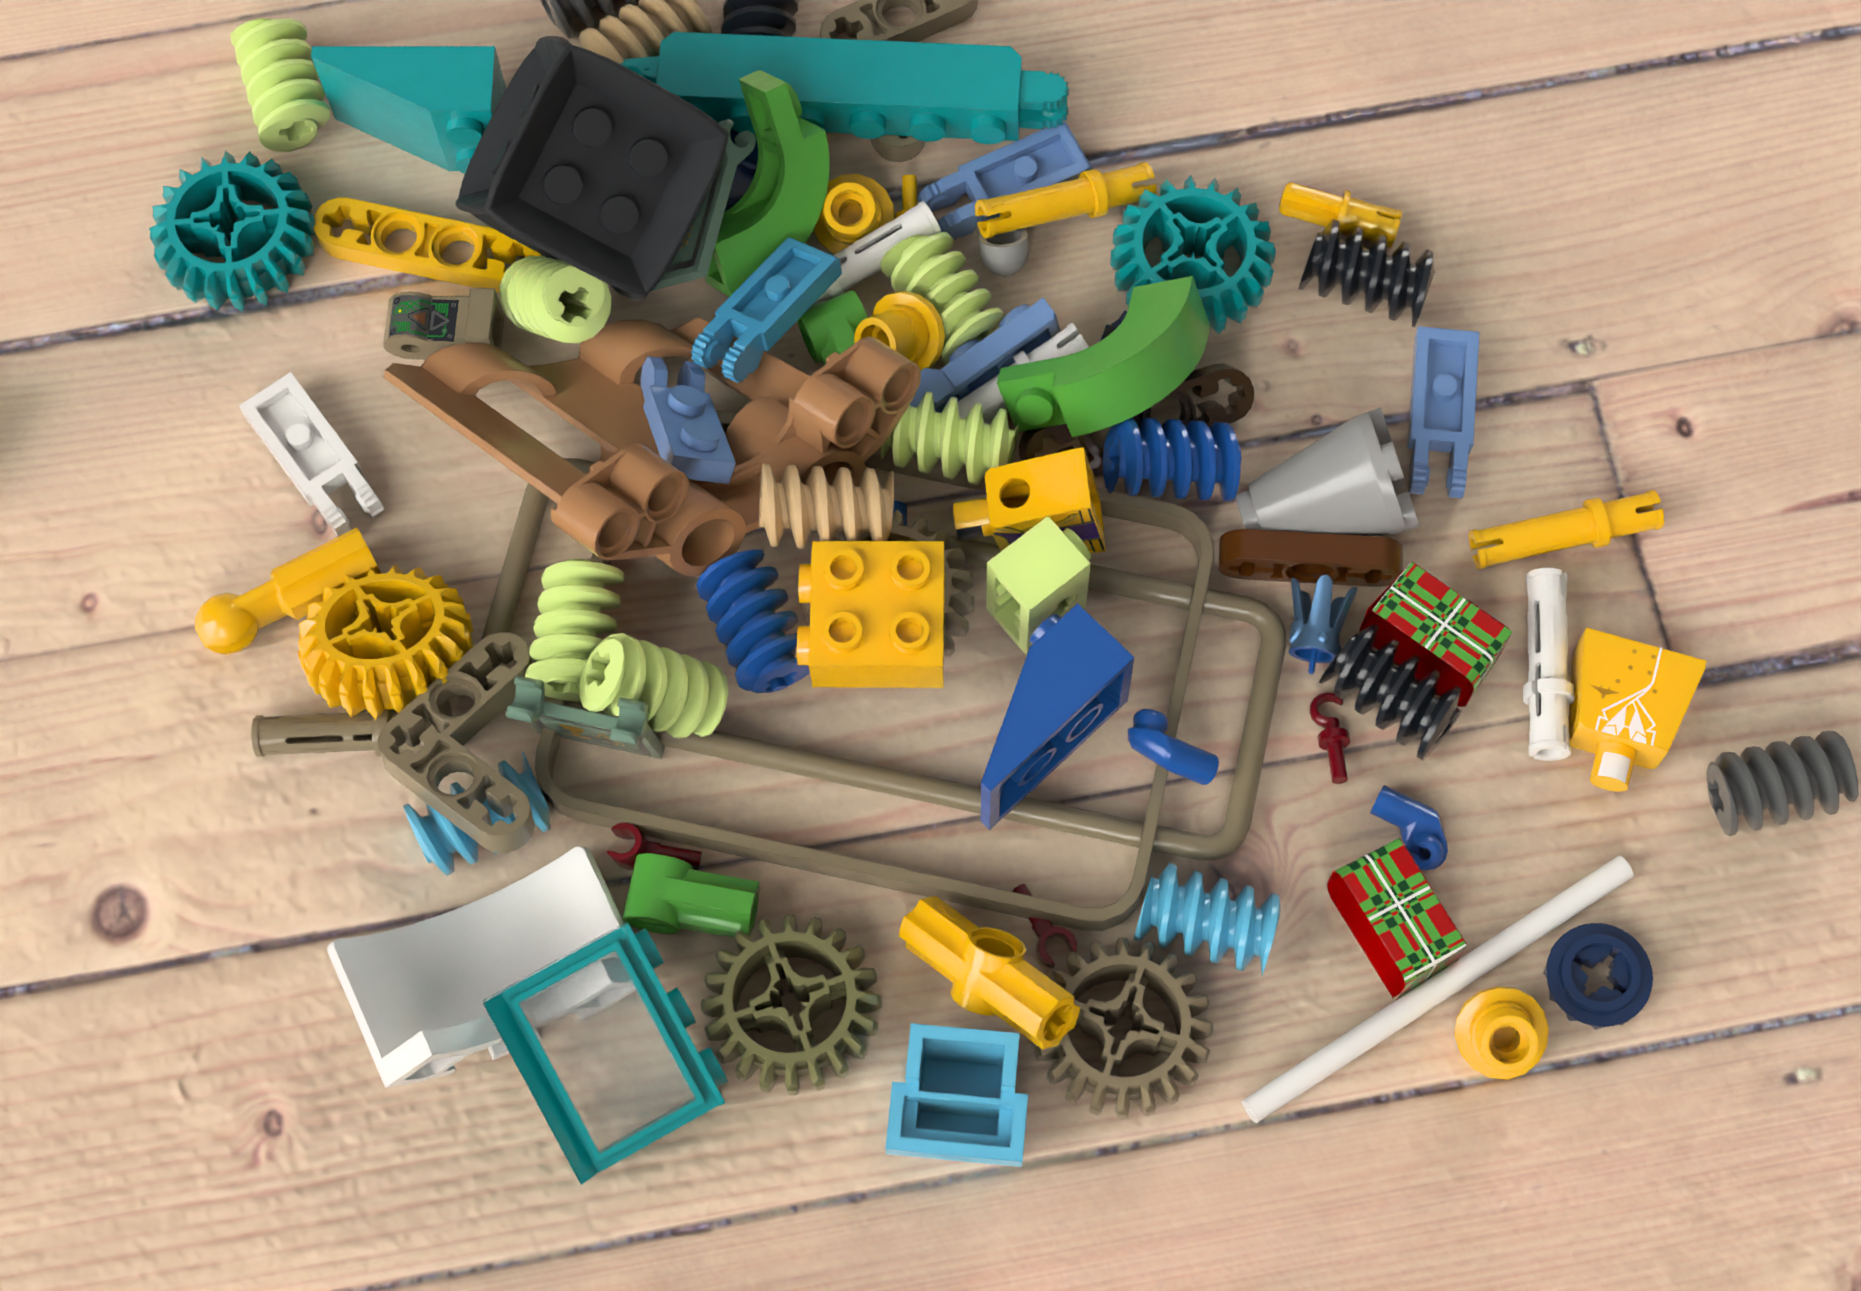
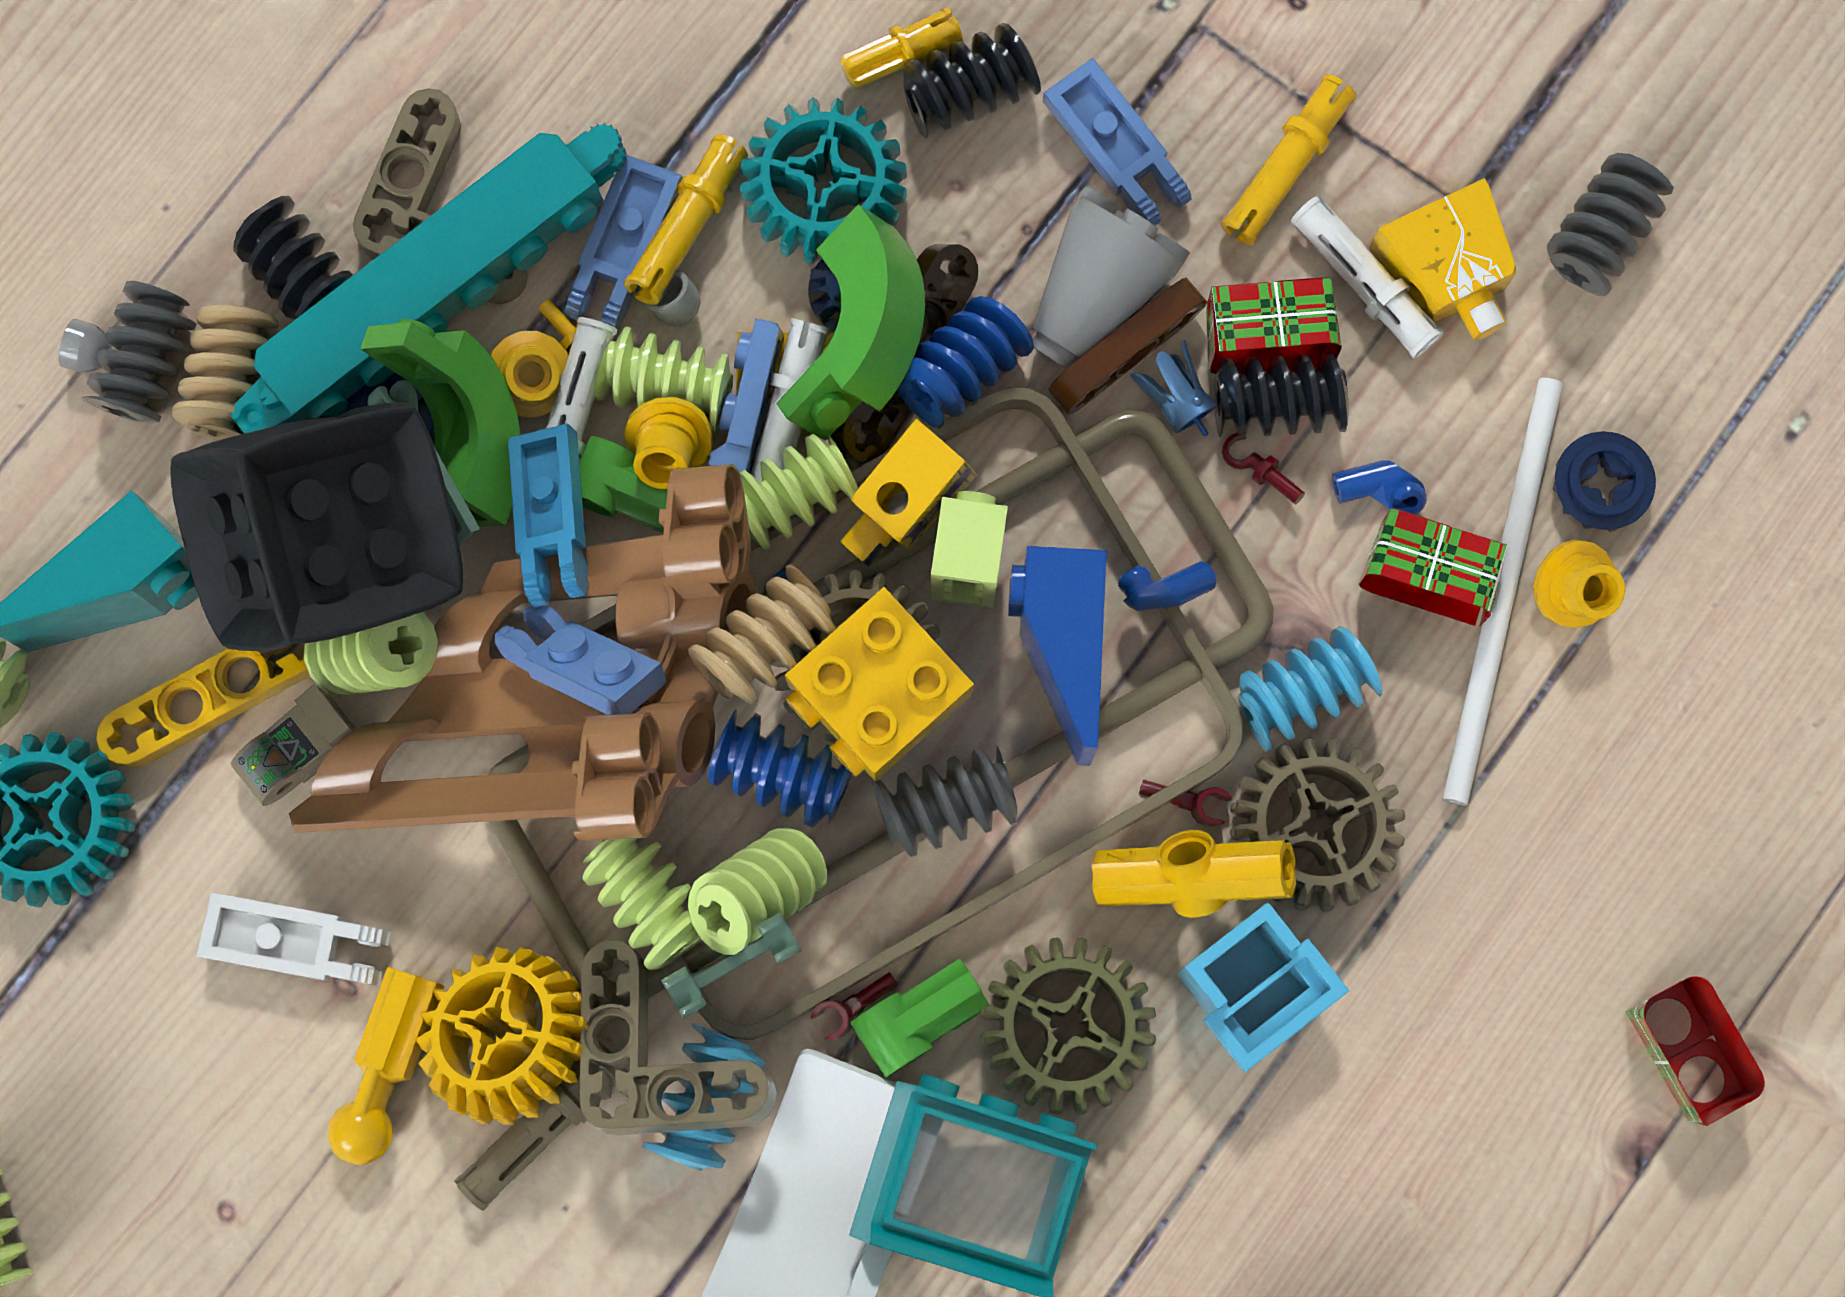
camera: 45 degrees left, 10 degrees up
(853, 755) = (946, 801): none -> dark grey piece

